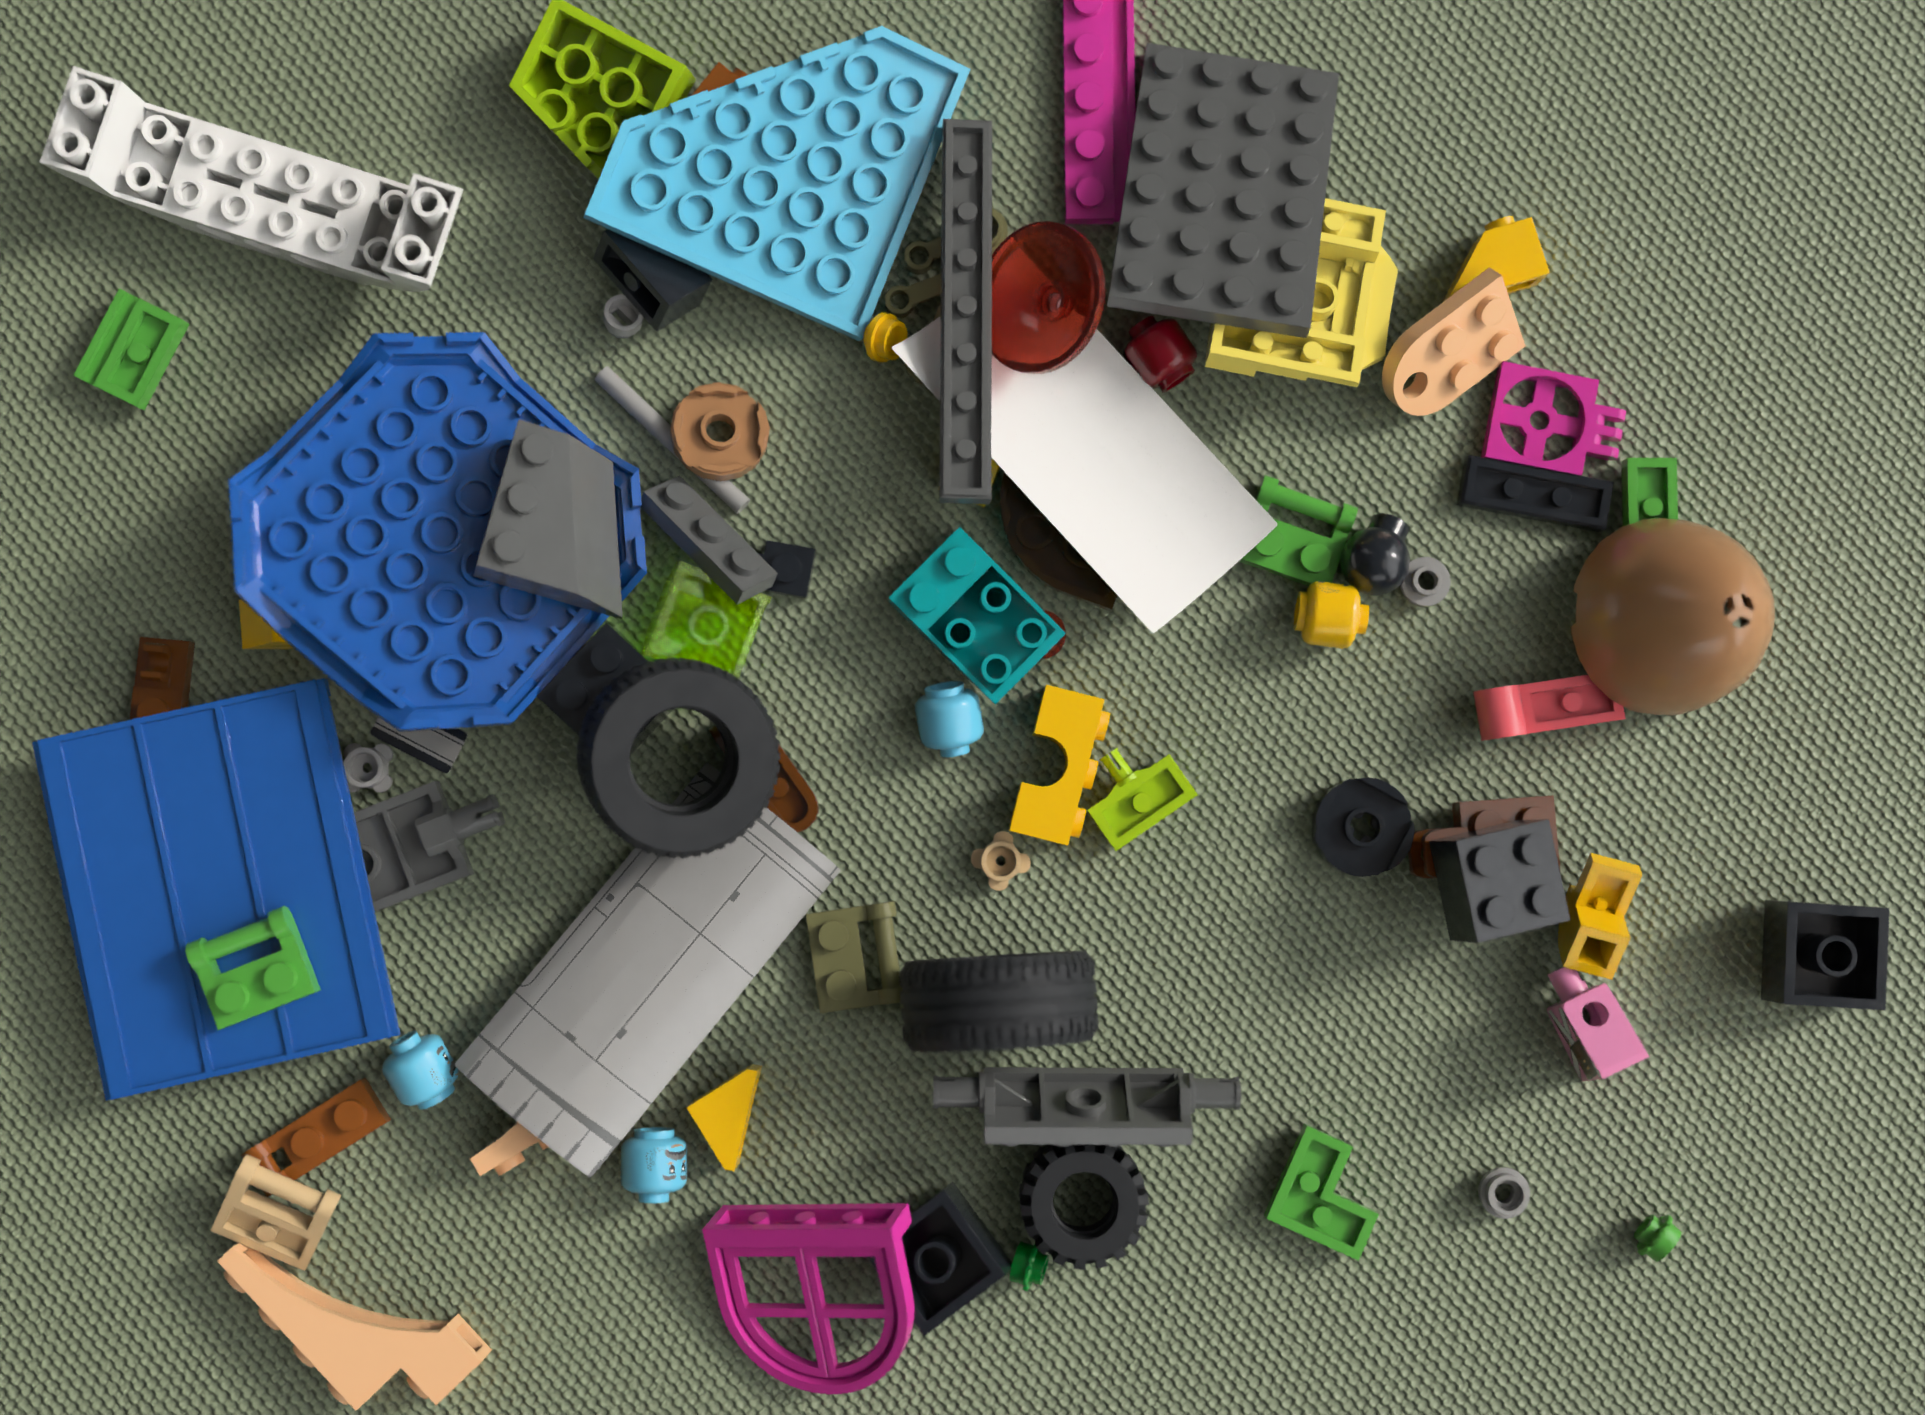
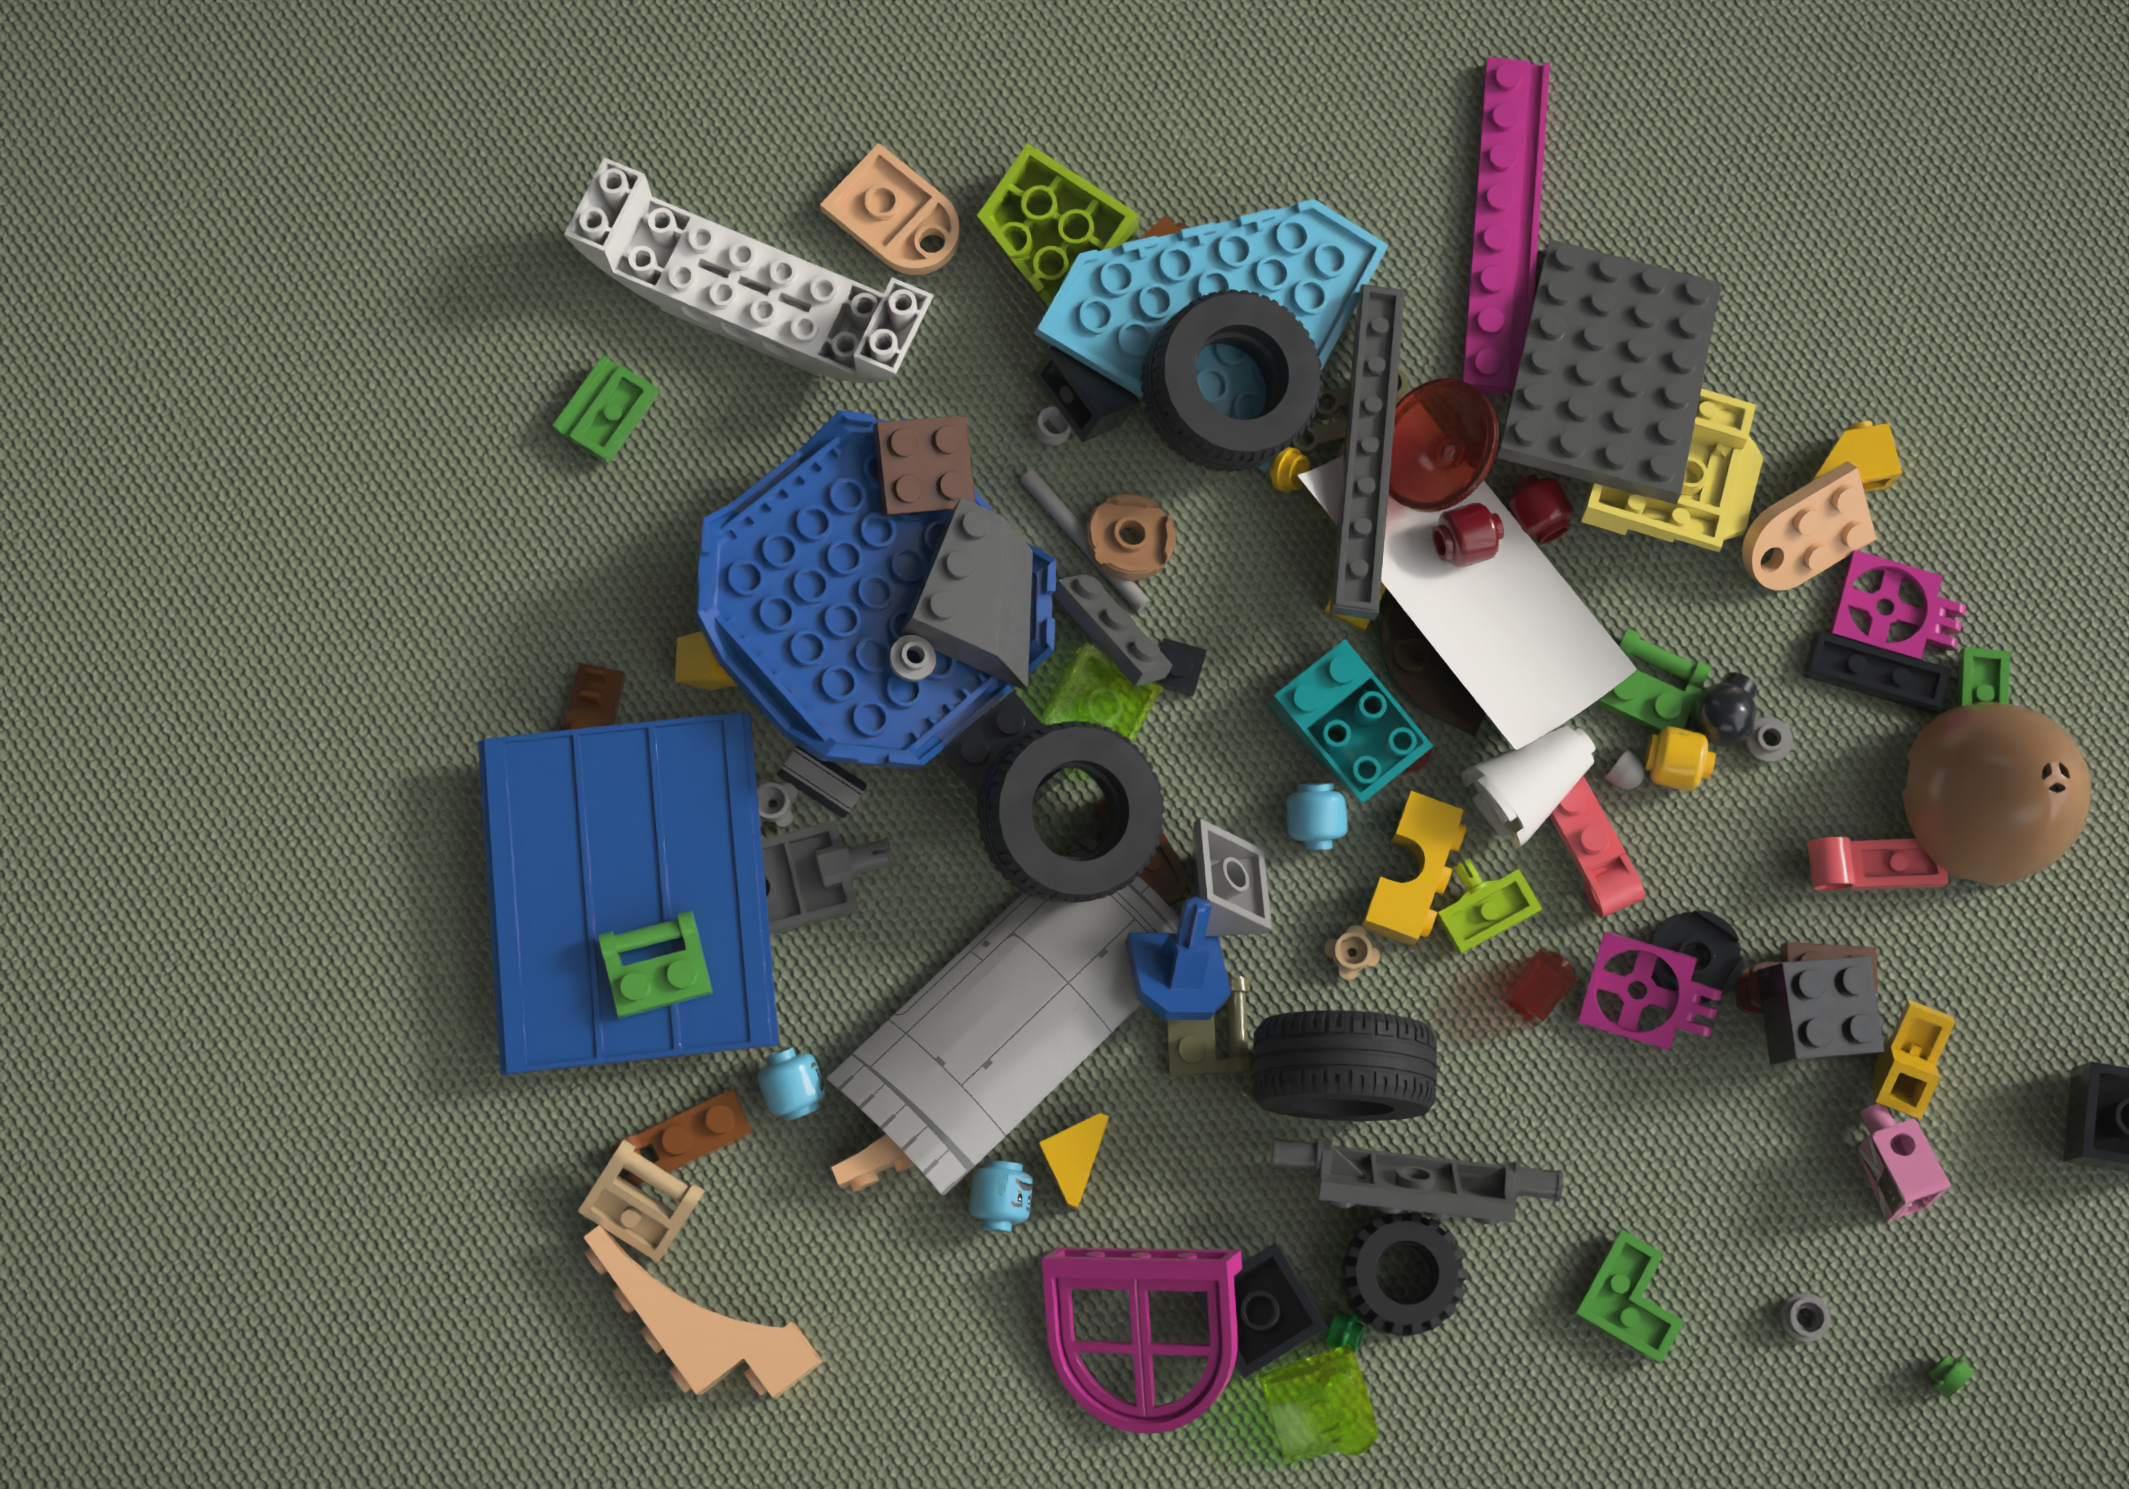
camera: 10 degrees right, 10 degrees down
(422, 89) = (892, 212): none -> light nougat plate
(477, 383) = (923, 465): none -> reddish brown plate
(484, 619) = (903, 667): none -> light grey plate
(817, 909) = (1180, 971): none -> blue piece
(847, 196) = (1275, 344): none -> black tyre
(862, 805) = (1232, 880): none -> light grey slope
(1008, 1346) = (1320, 1406): none -> clear neon green slope
(1083, 394) = (1467, 535): none -> dark red head
(1171, 666) = (1528, 783): none -> white cone
(1201, 877) = (1539, 986): none -> clear red brick
(1246, 719) = (1597, 852): none -> coral plate
(1276, 633) = (1627, 772): none -> light grey hinge
(1353, 881) = (1683, 1002): none -> dark pink piece

